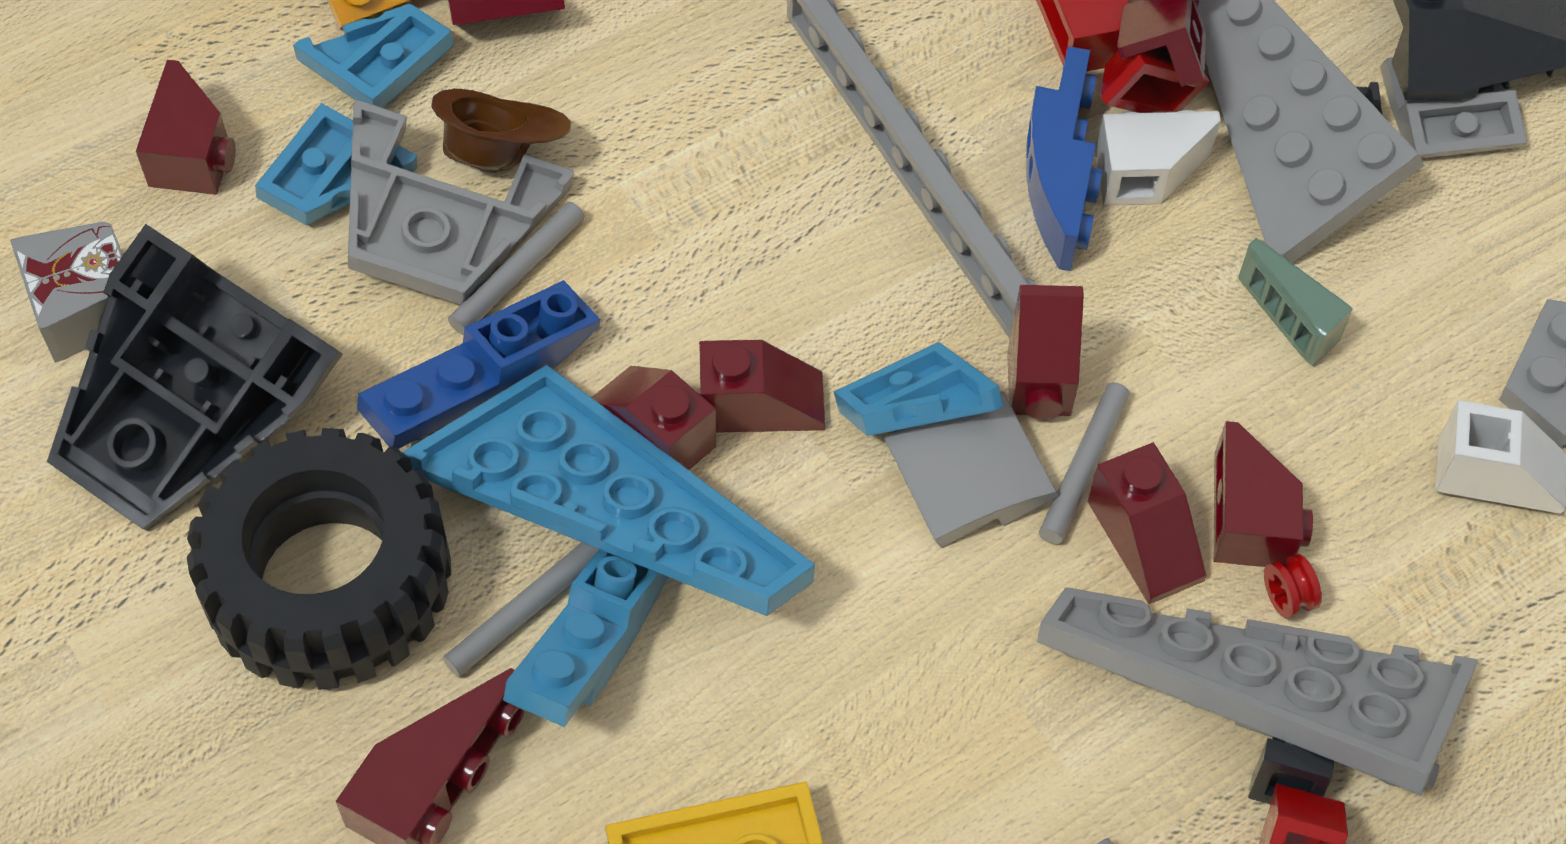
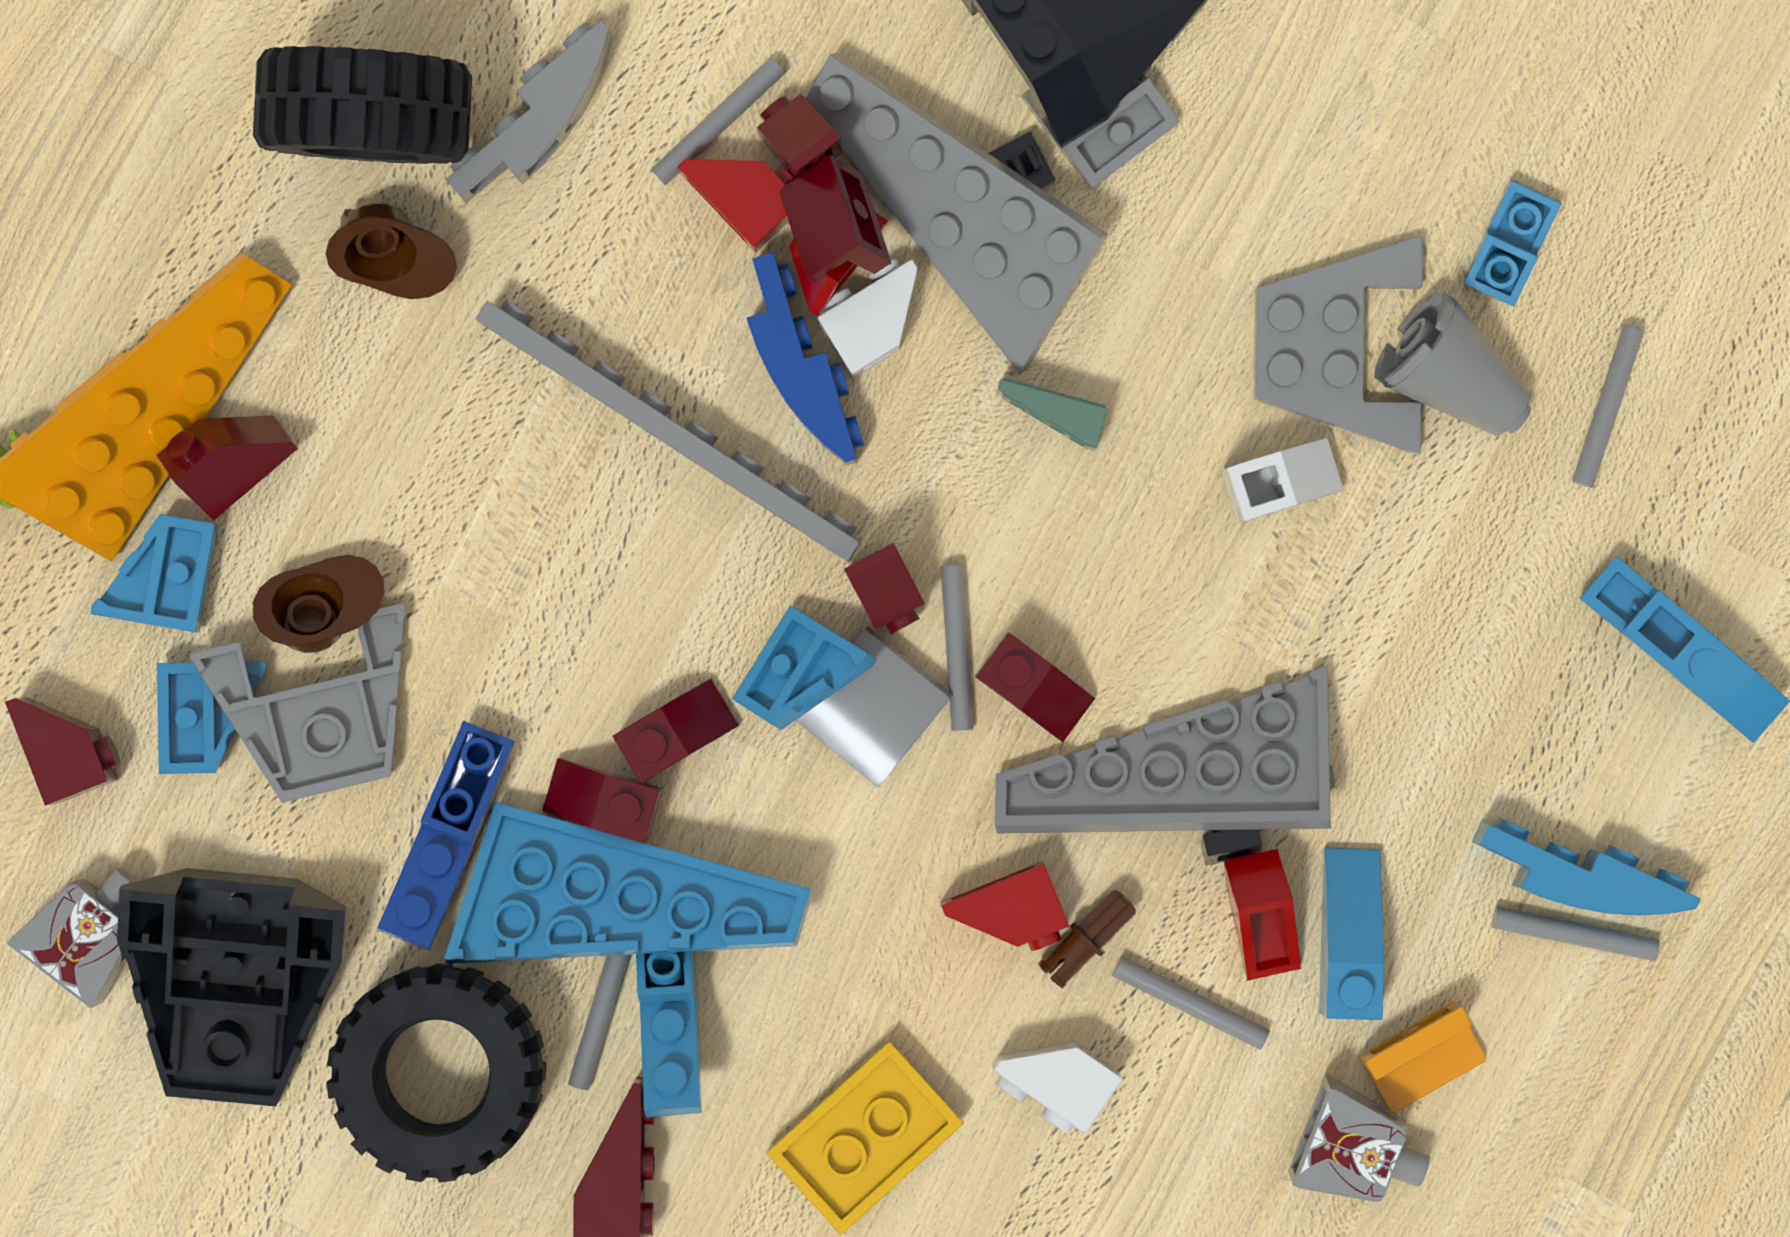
camera: 25 degrees left, 30 degrees up
(516, 267) = (411, 717): light grey bar -> none
(1012, 718) = (1013, 908): none -> red slope
(1081, 795) = (1088, 938): none -> reddish brown axle
(1255, 503) = (1107, 623): dark red slope -> none
(1292, 586) = (1165, 679): red bush -> none

